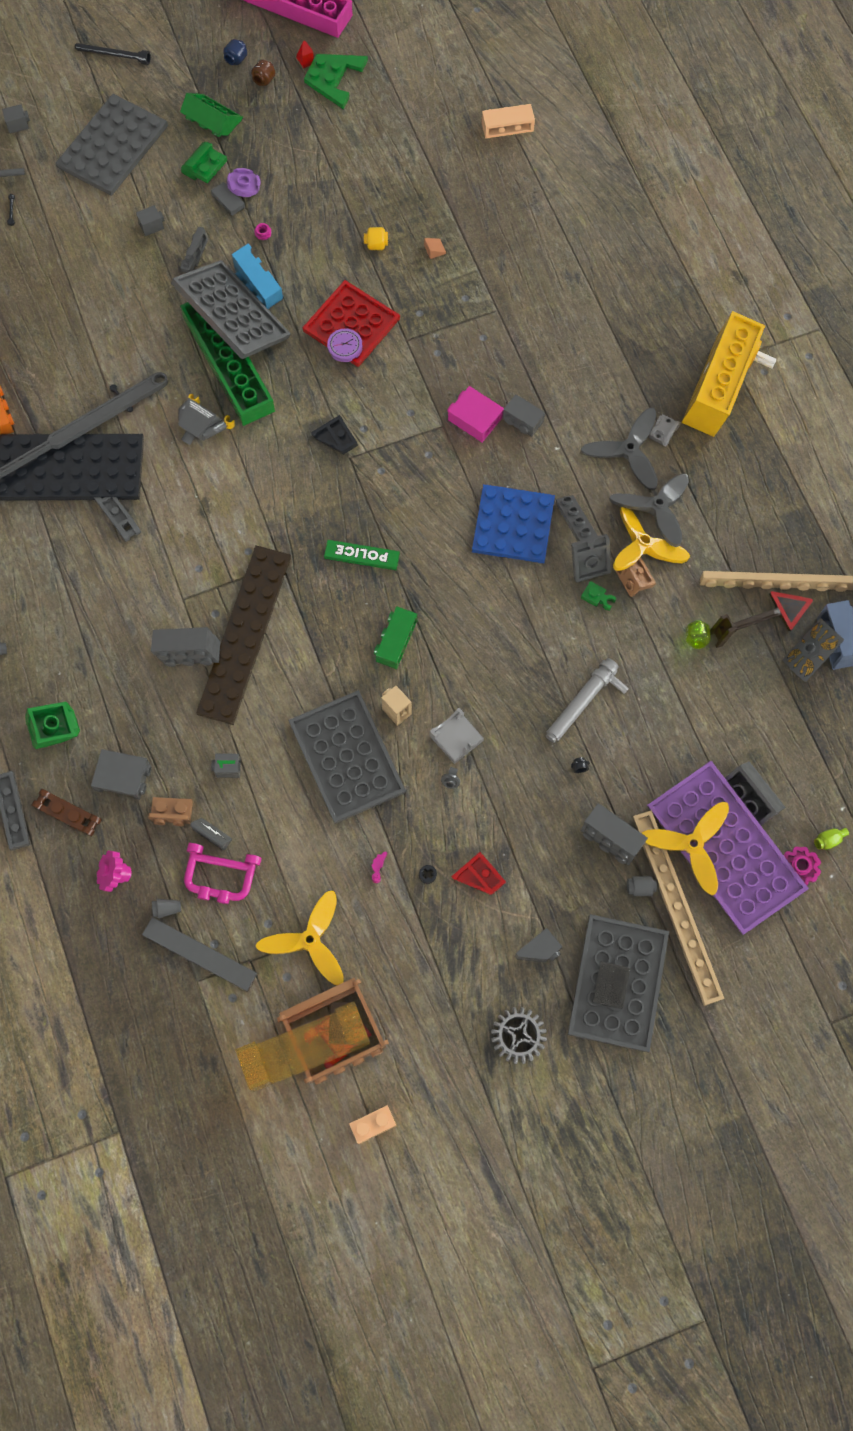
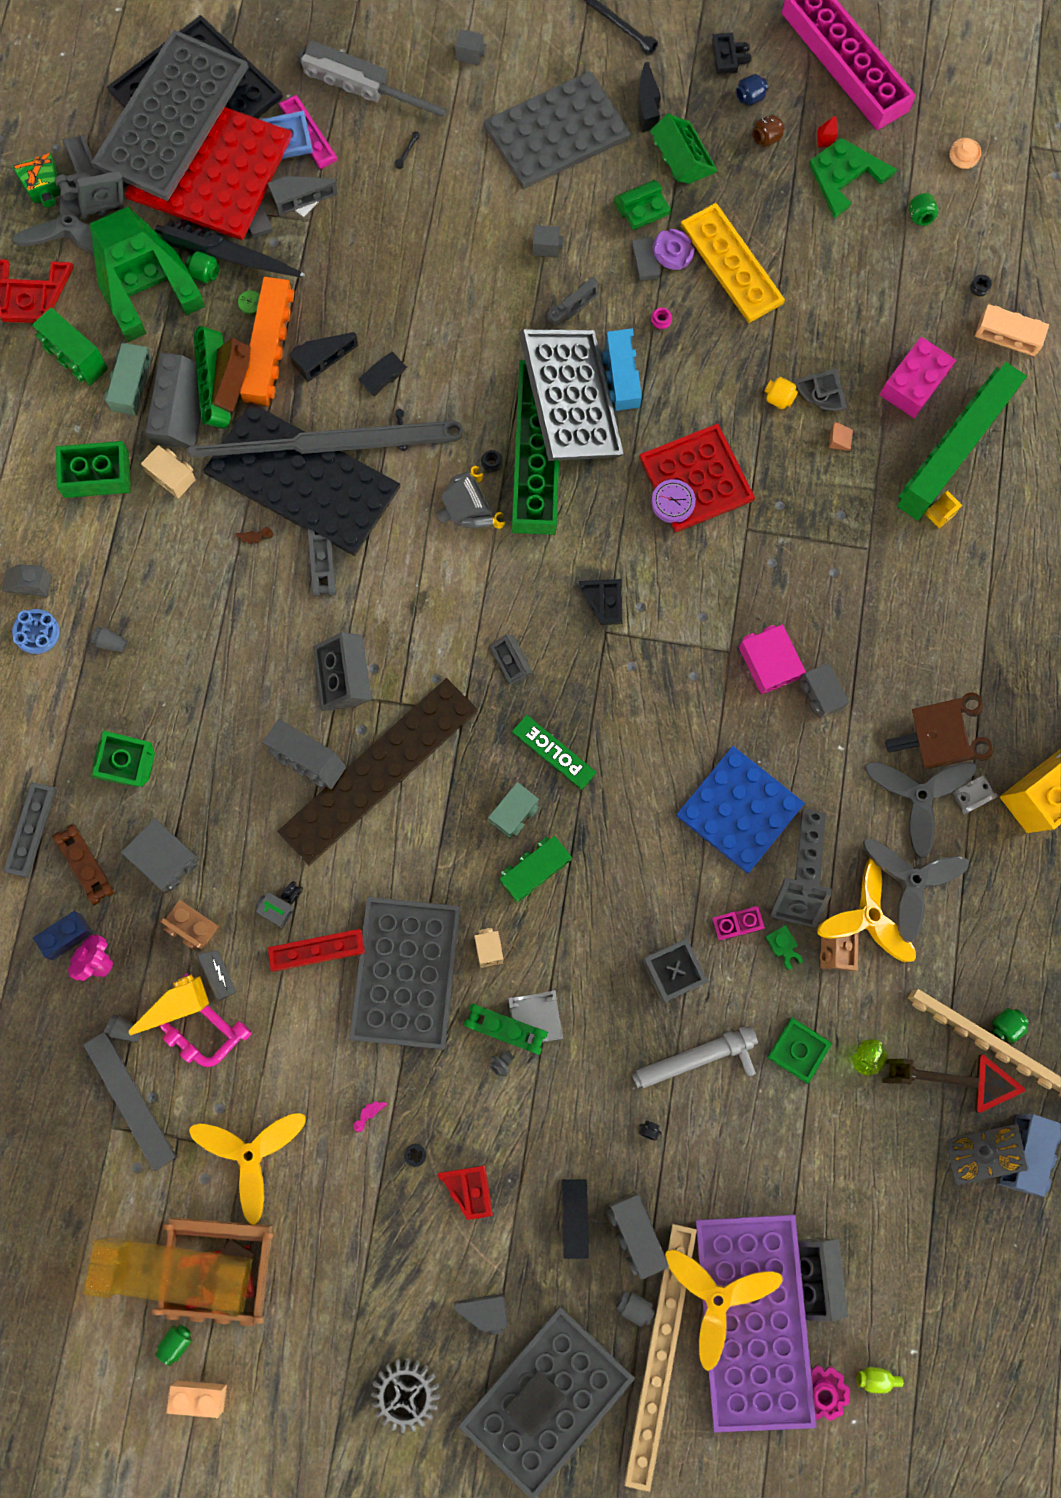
camera: 25 degrees right, 5 degrees up
(31, 376) = (319, 354): none -> black slope
(56, 525) = (254, 537): none -> reddish brown piece
(81, 867) = (63, 935): none -> dark blue brick
(84, 366) = (382, 372): none -> black slope
(166, 93) = (648, 99): none -> black slope
(177, 580) = (342, 672): none -> dark grey slope
(195, 860) = (181, 1000): none -> yellow slope
(197, 382) = (491, 455): none -> black plate
(204, 37) = (729, 53): none -> black hinge
(232, 746) = (292, 892): none -> black bush
(273, 775) = (316, 950): none -> red plate
(290, 171) = (732, 263): none -> yellow plate
(293, 509) = (511, 659): none -> dark grey slope
(333, 1098) = (173, 1344): none -> green brick
(357, 607) = (513, 810): none -> sand green brick
(401, 72) = (923, 209): none -> green head
(404, 223) = (823, 390): none -> dark grey brick
(407, 23) = (965, 153): none -> light nougat plate
(440, 753) = (505, 1029): none -> green plate
(463, 182) = (917, 377): none -> dark pink brick
(470, 106) = (980, 290): none -> black bush
(516, 207) = (960, 440): none -> green brick
(532, 257) = (943, 509): none -> yellow panel
(533, 650) = (674, 970): none -> dark grey brick
(558, 597) = (738, 923): none -> dark pink slope
(565, 851) = (575, 1219): none -> black slope
(620, 398) = (943, 733): none -> reddish brown piece
(648, 657) = (799, 1050): none -> green tile
(777, 562) = (1010, 1025): none -> green head

